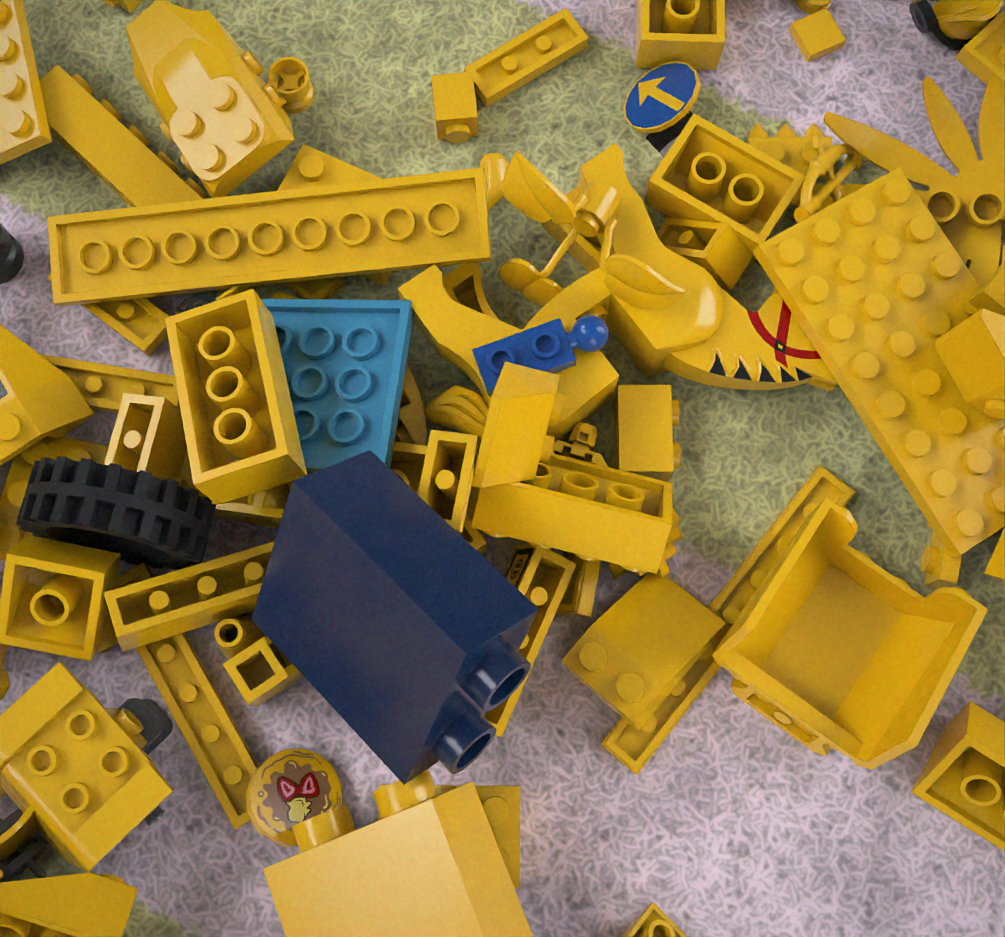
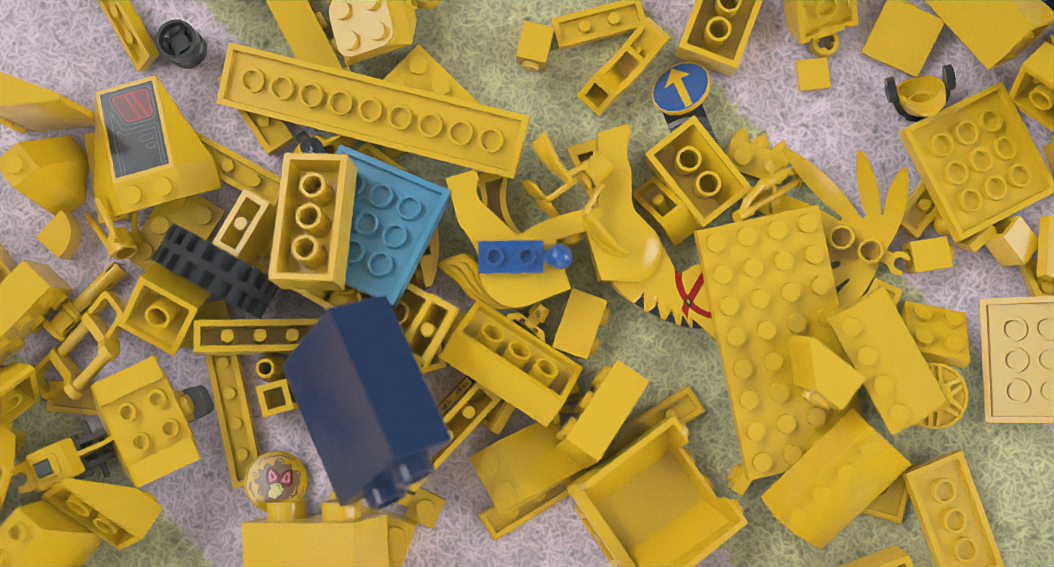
camera: 20 degrees right, 10 degrees up
(495, 168) = (546, 108): yellow arm -> none
(517, 426) = (488, 305): yellow slope -> none
(517, 760) = (423, 506): none -> yellow plate
(581, 93) = (624, 67): none -> yellow arch
(722, 535) = (600, 413): none -> yellow brick

